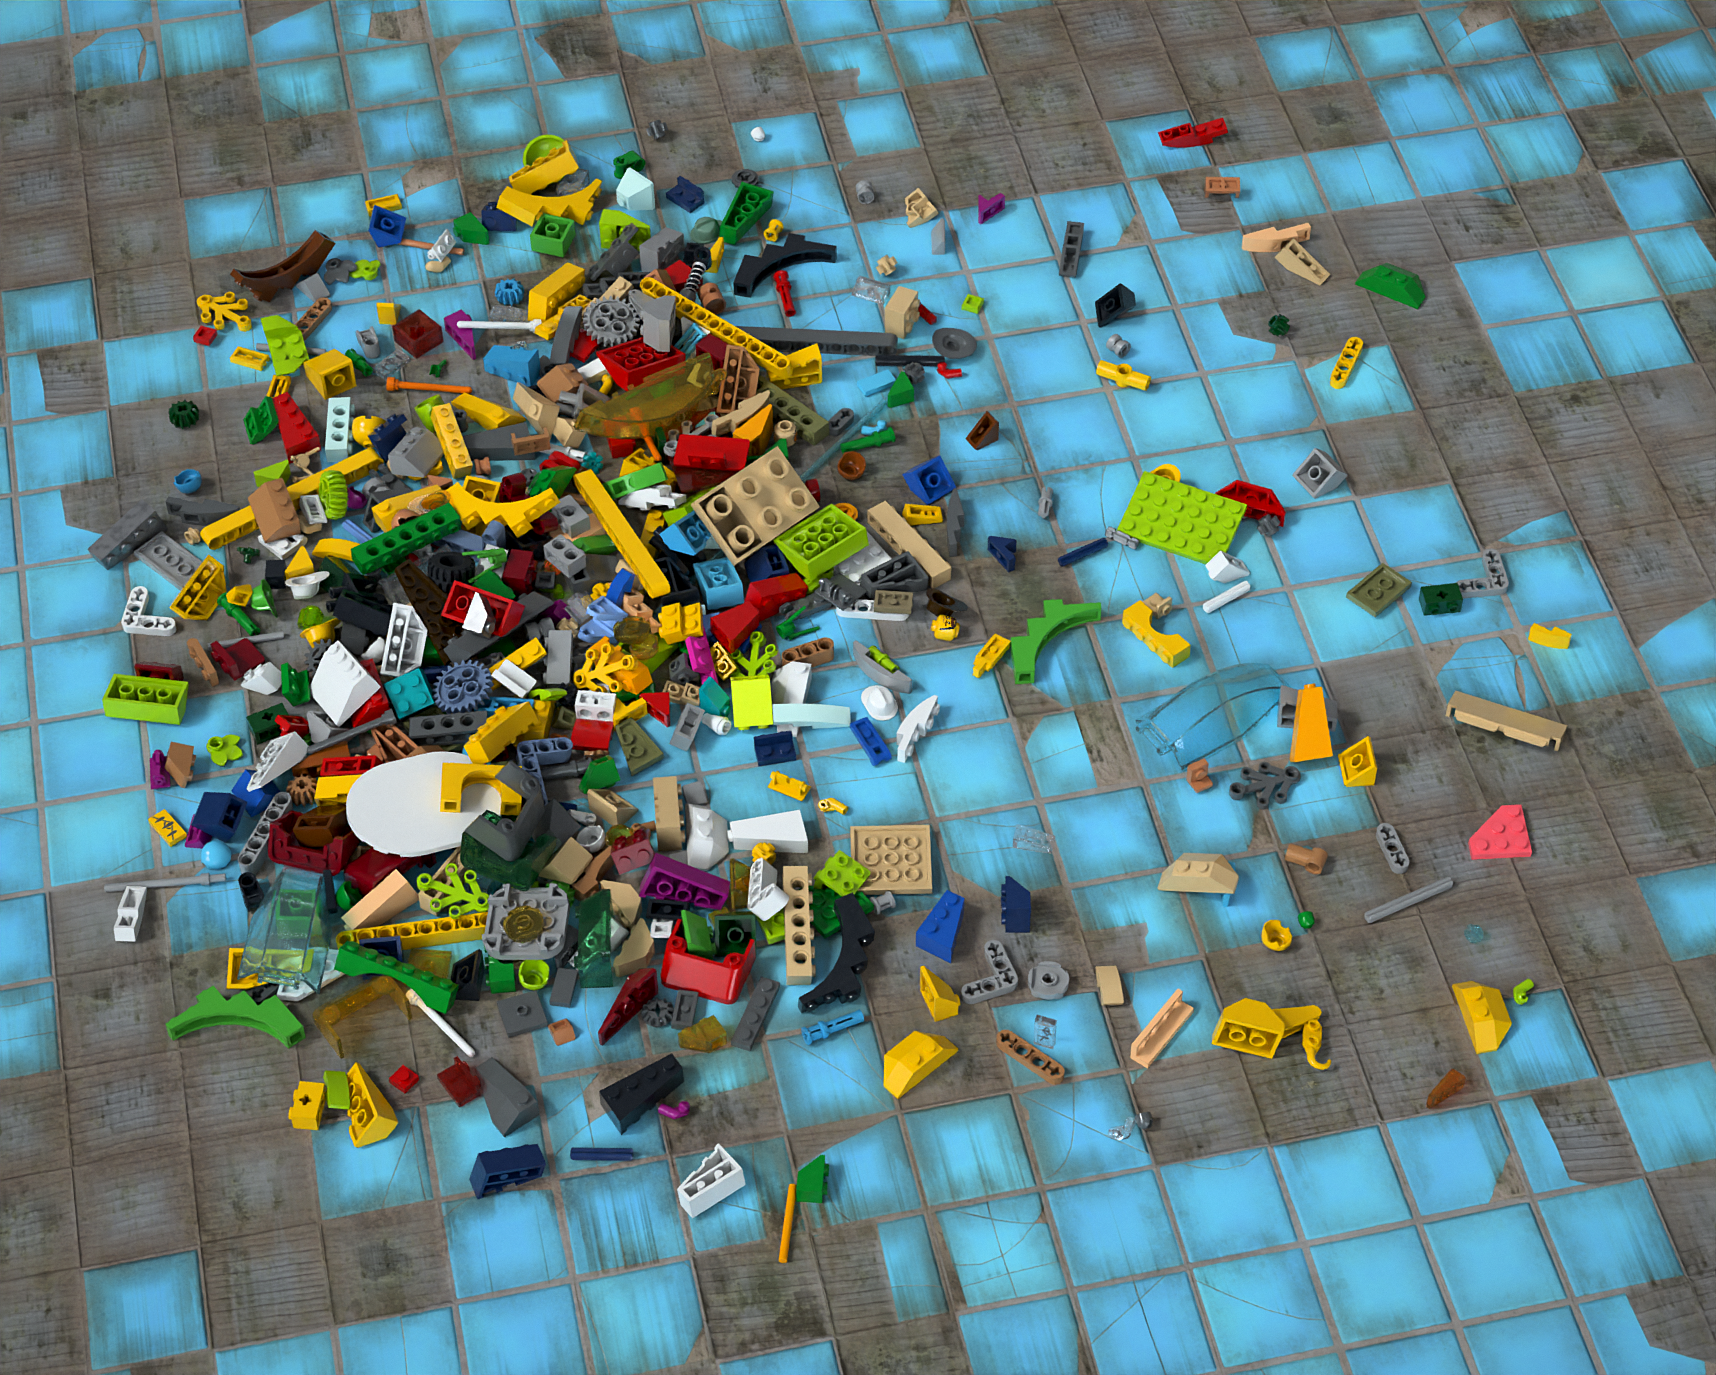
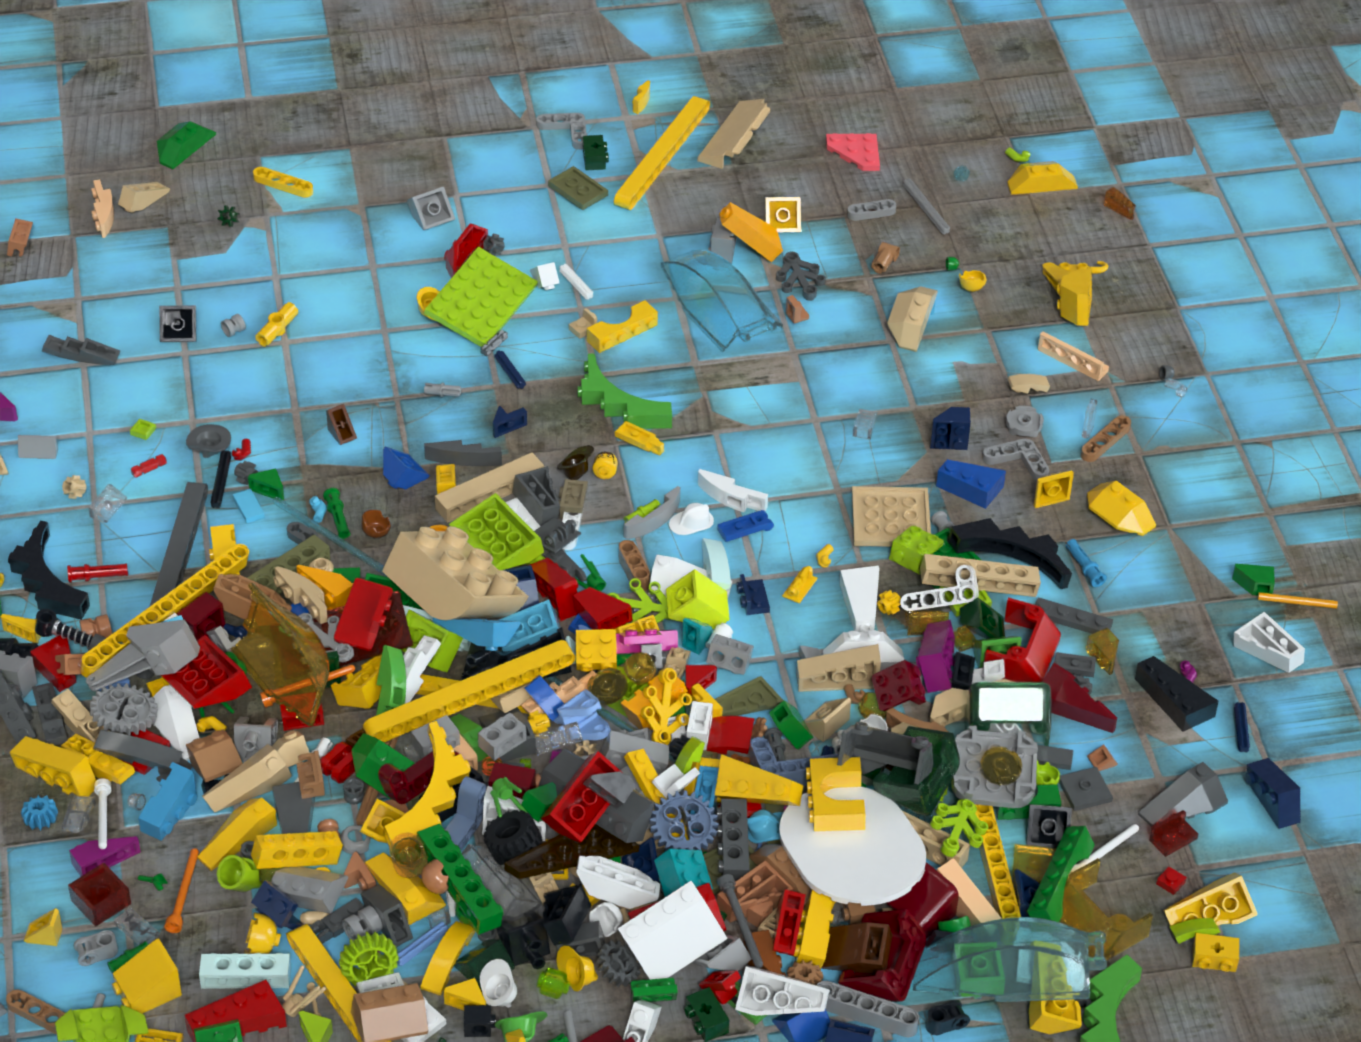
camera: 90 degrees left, 5 degrees down
(593, 462) = (336, 735): teal plant -> none
(902, 312) = (158, 473): tan brick -> none
(1456, 658) = (661, 153): none -> yellow beam

